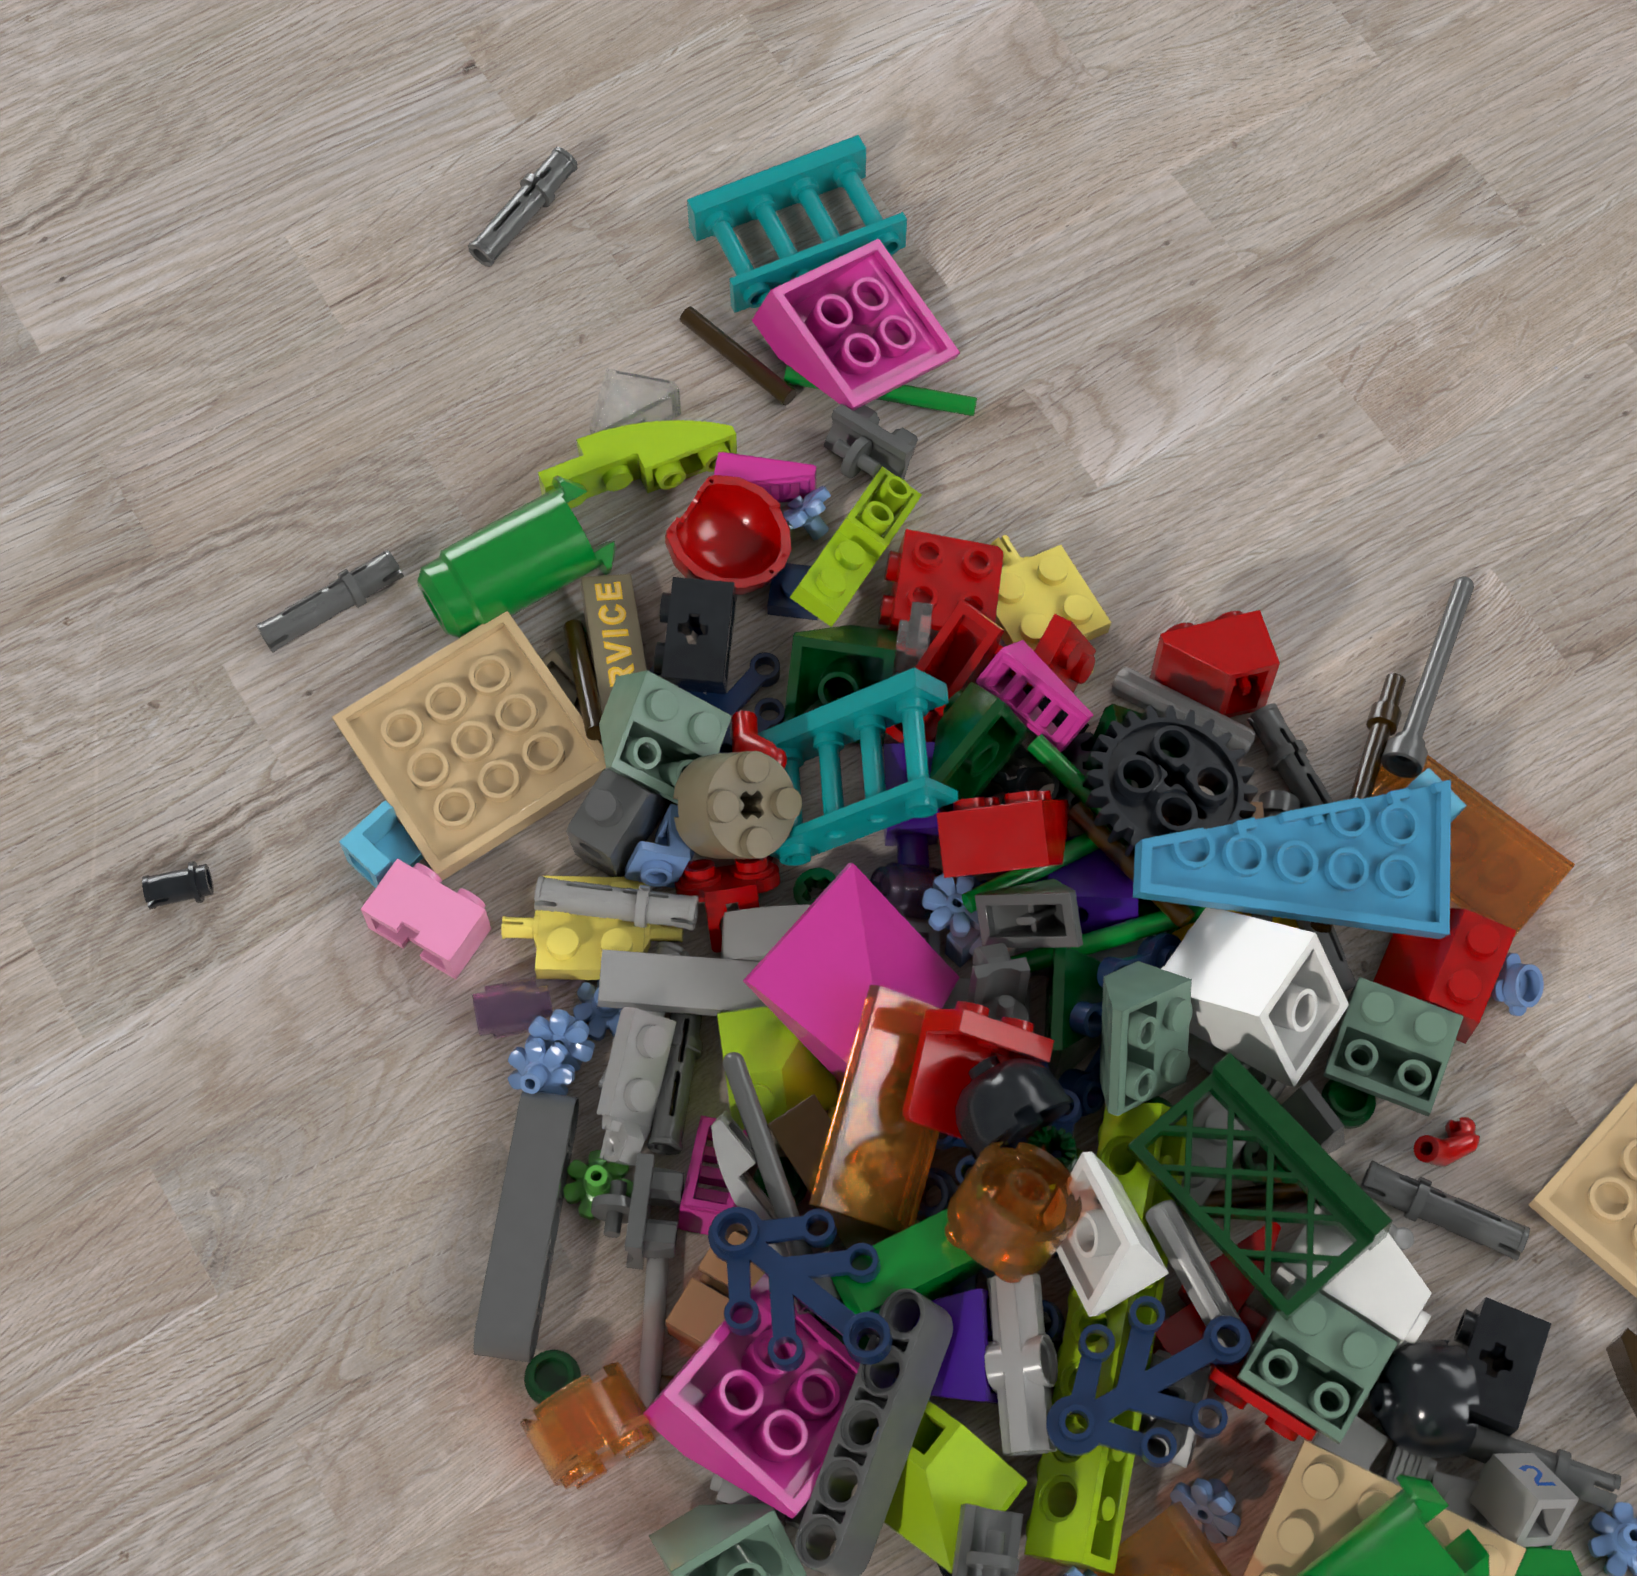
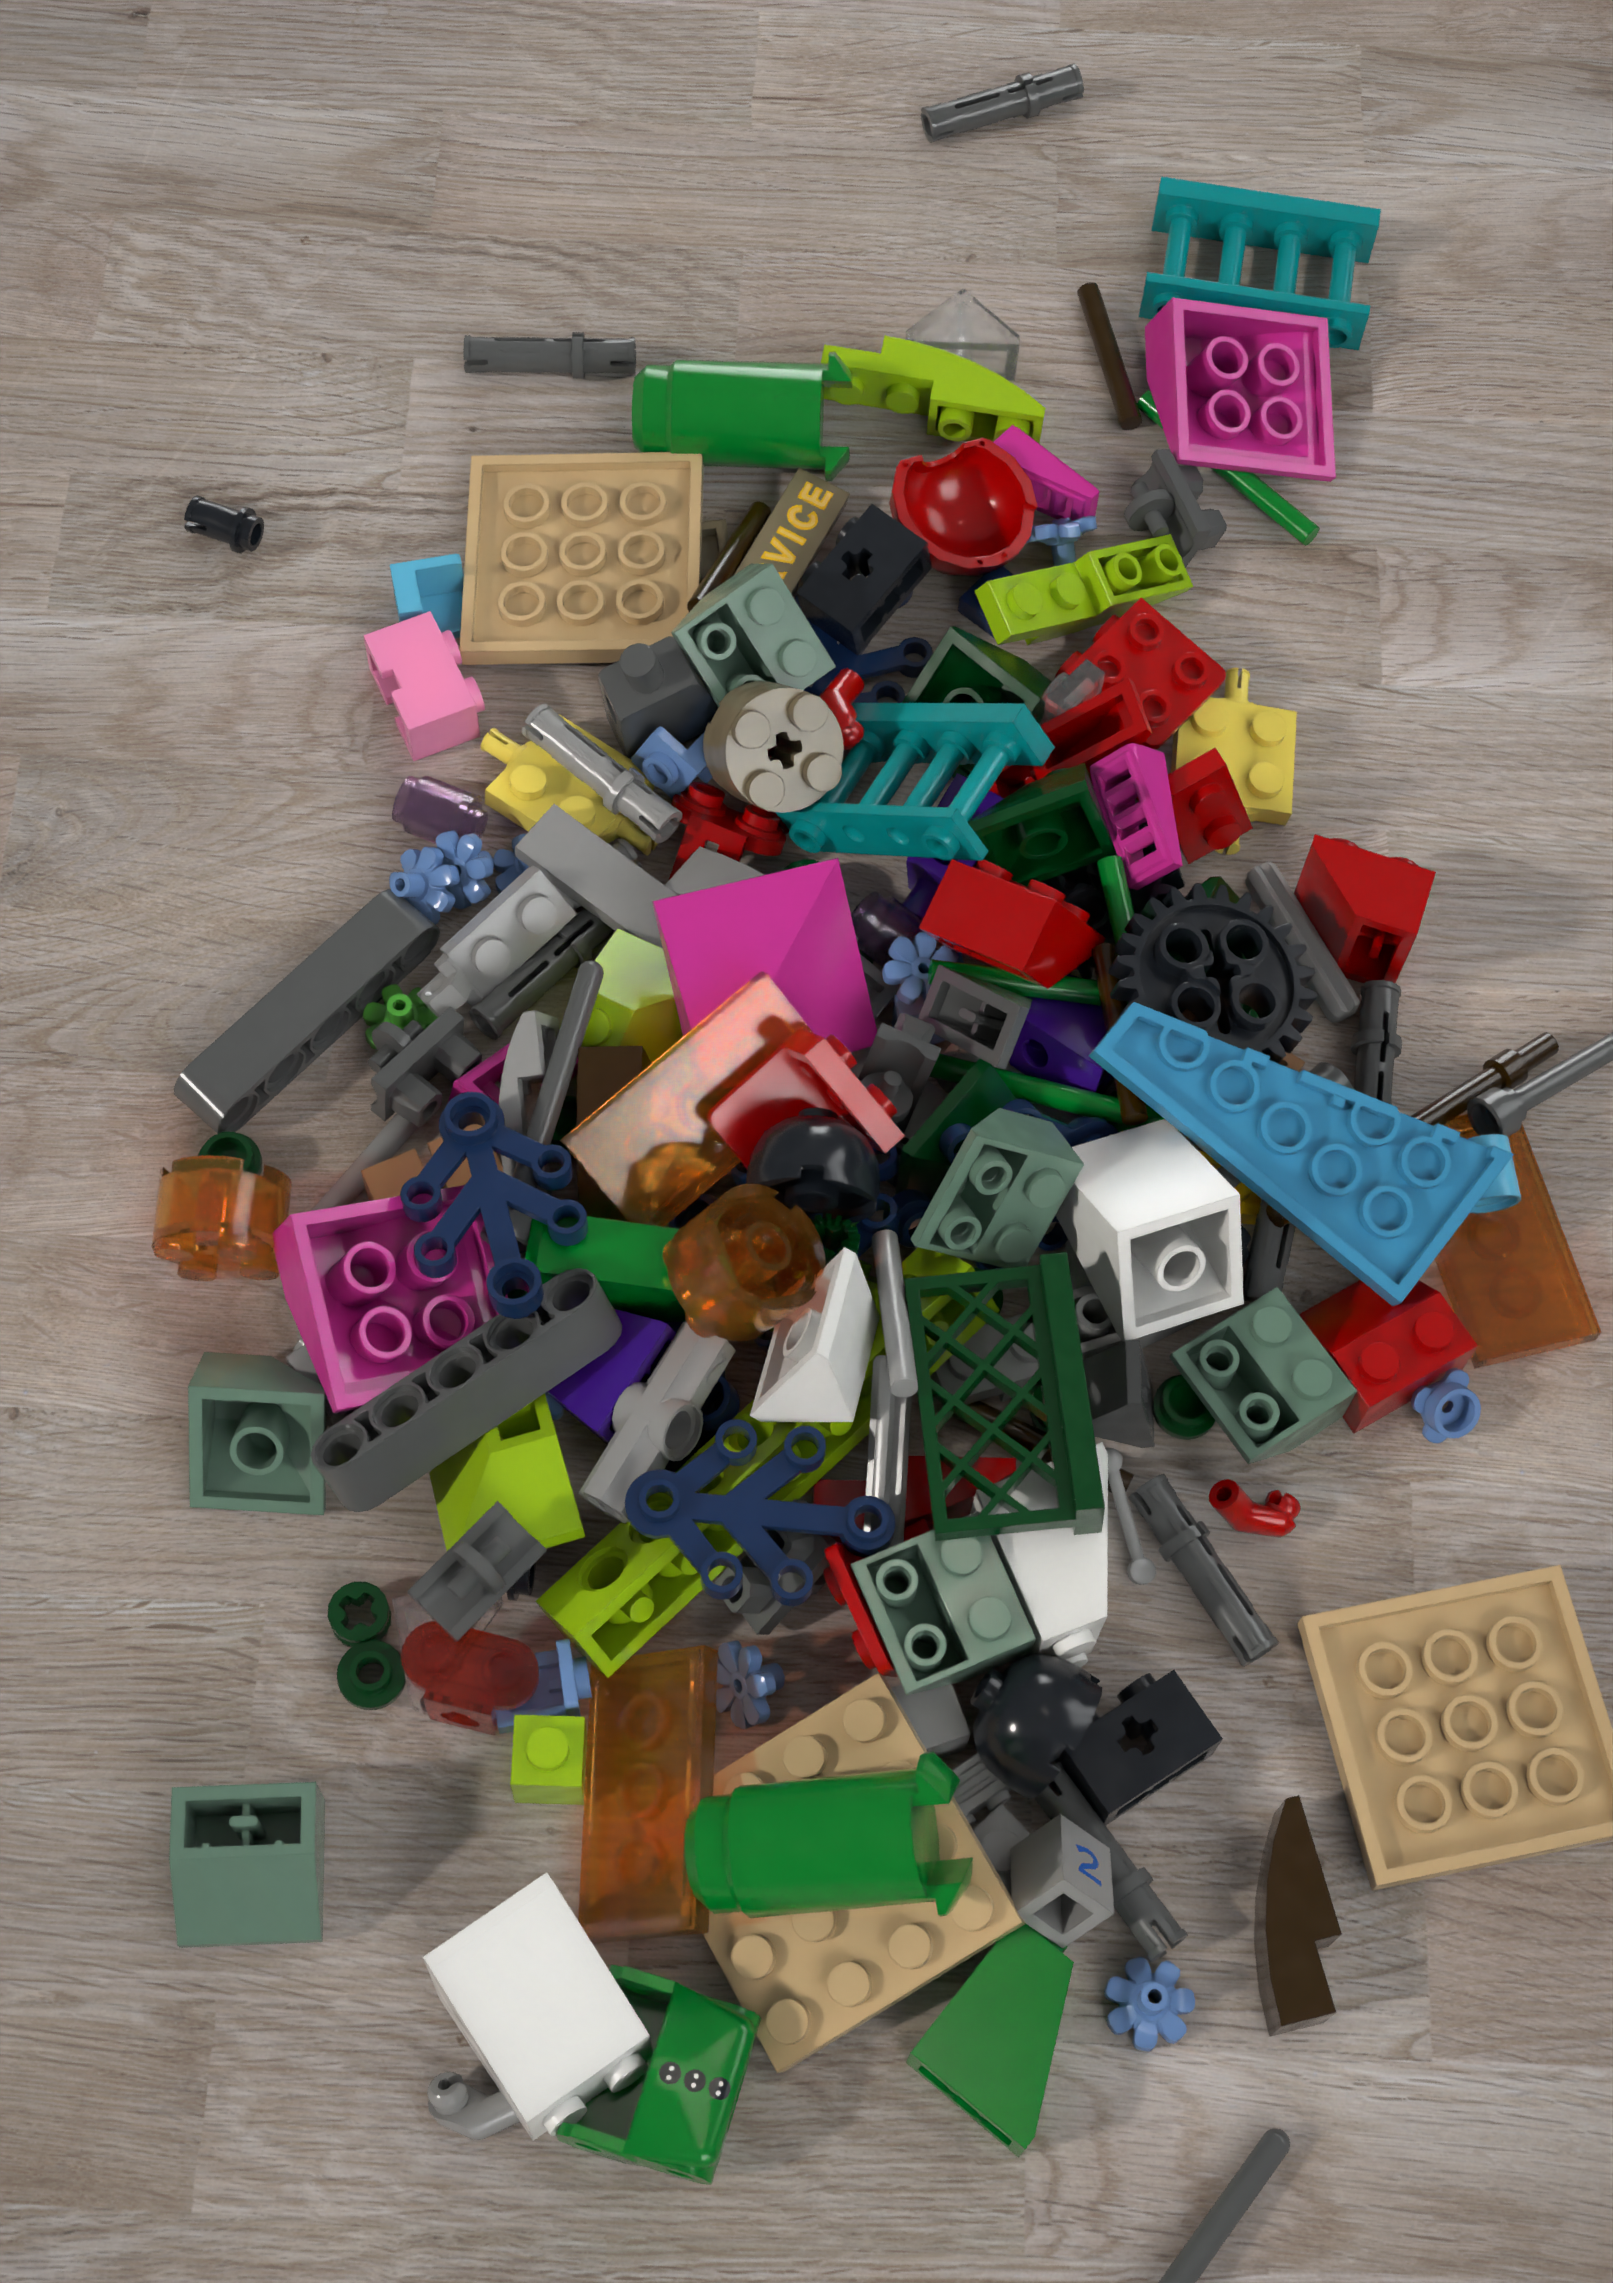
camera: 30 degrees right, 0 degrees up
(1138, 1174) = (894, 1314): none -> light grey bar

